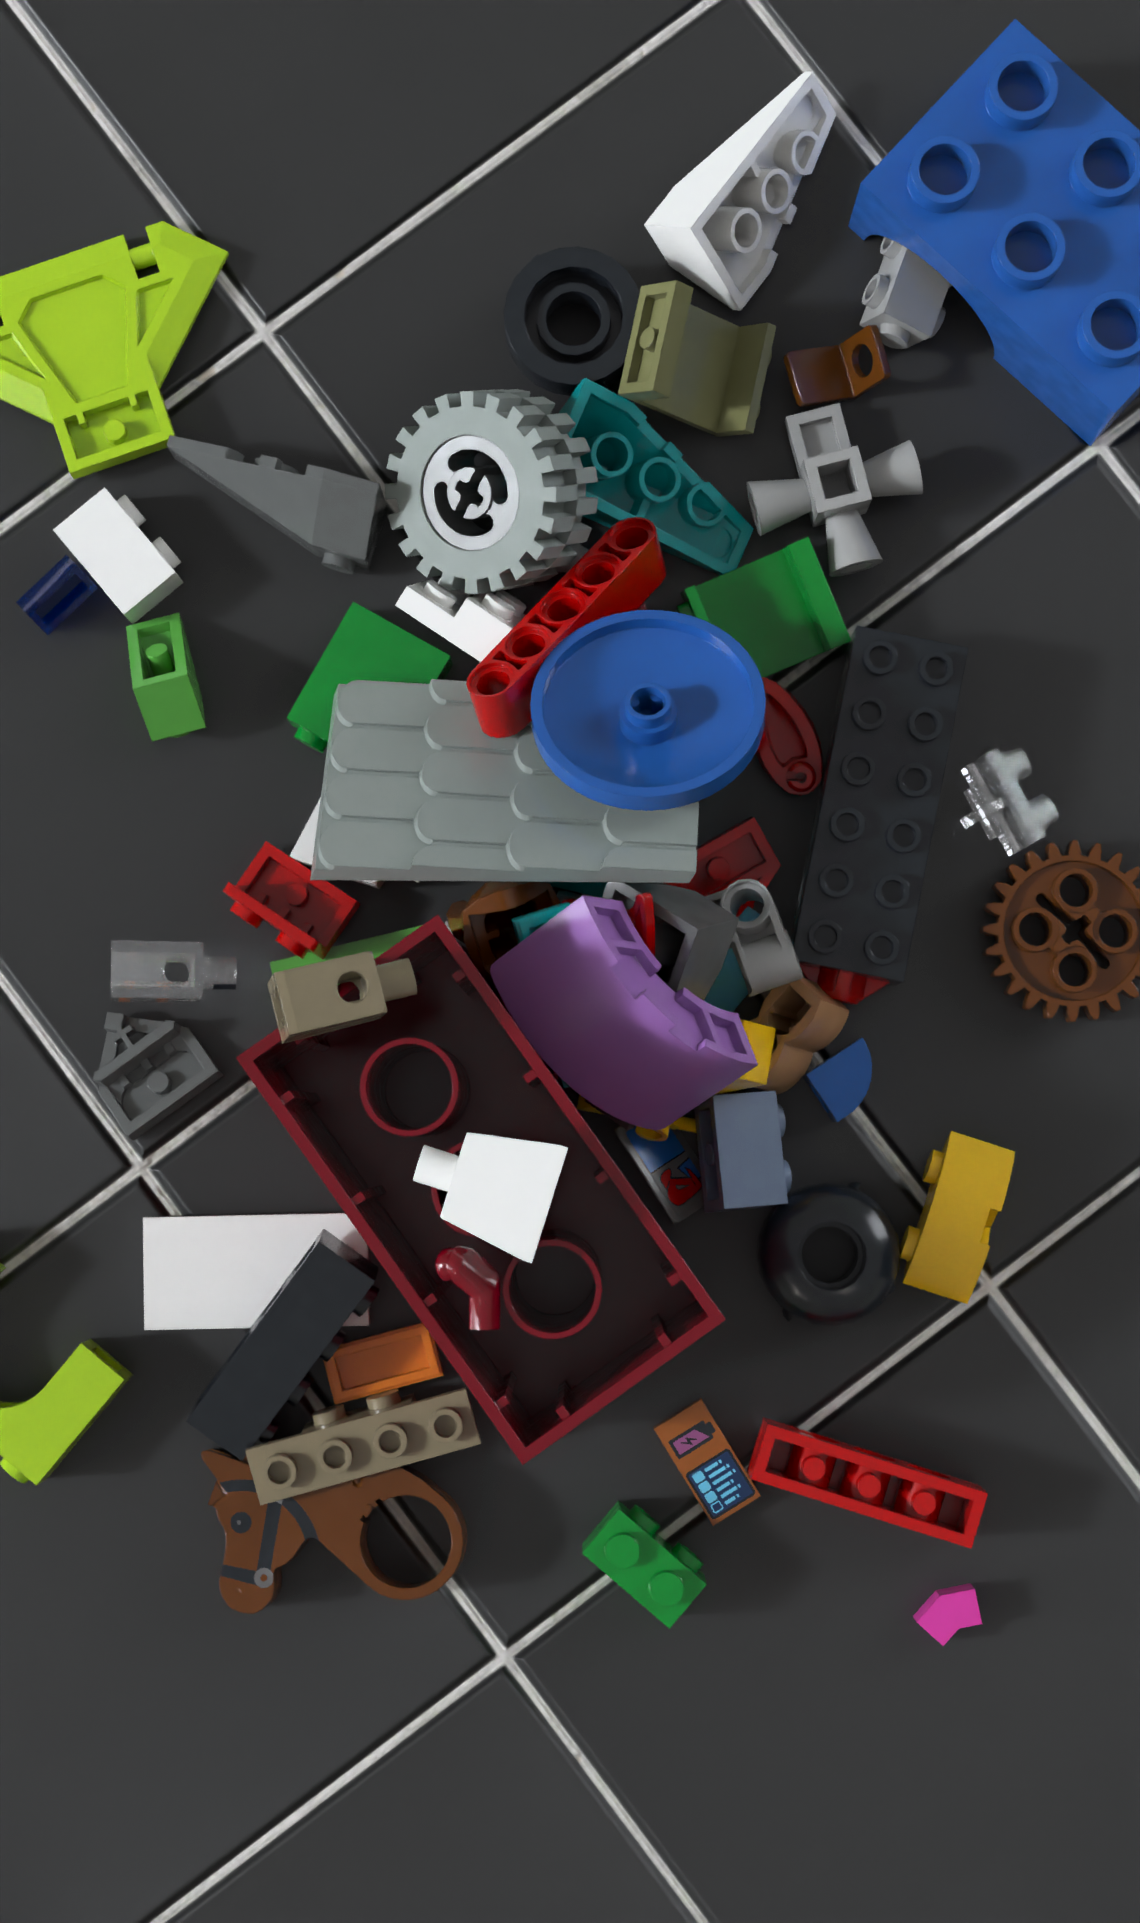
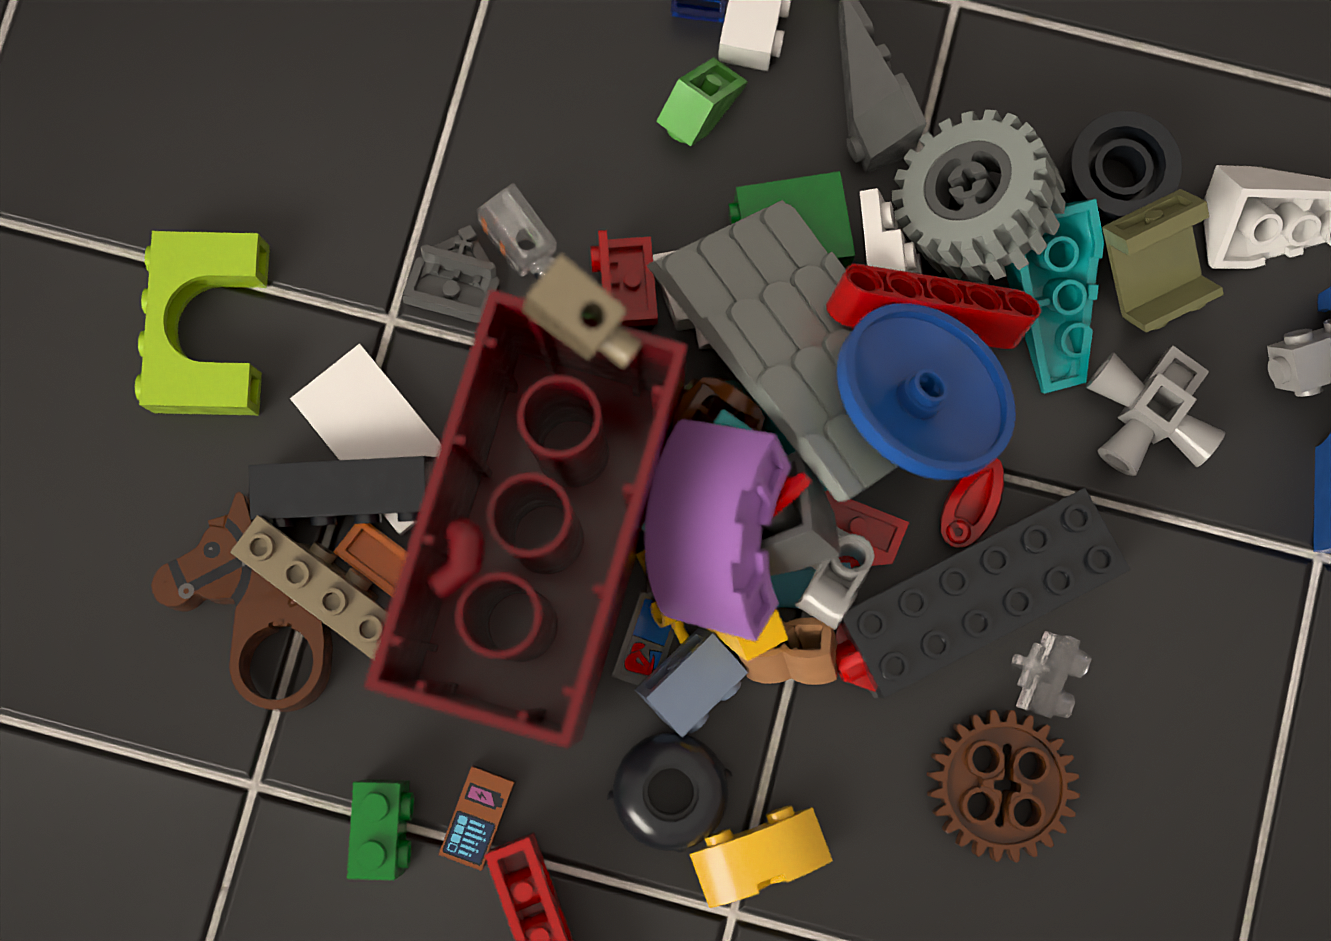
camera: 45 degrees right, 5 degrees down
(496, 1188) = (535, 522): white torso -> none
(773, 608) = (1050, 434): green panel -> none
(834, 371) = (1224, 354): reddish brown bracket -> none
(842, 1080) = (788, 710): blue brick -> none

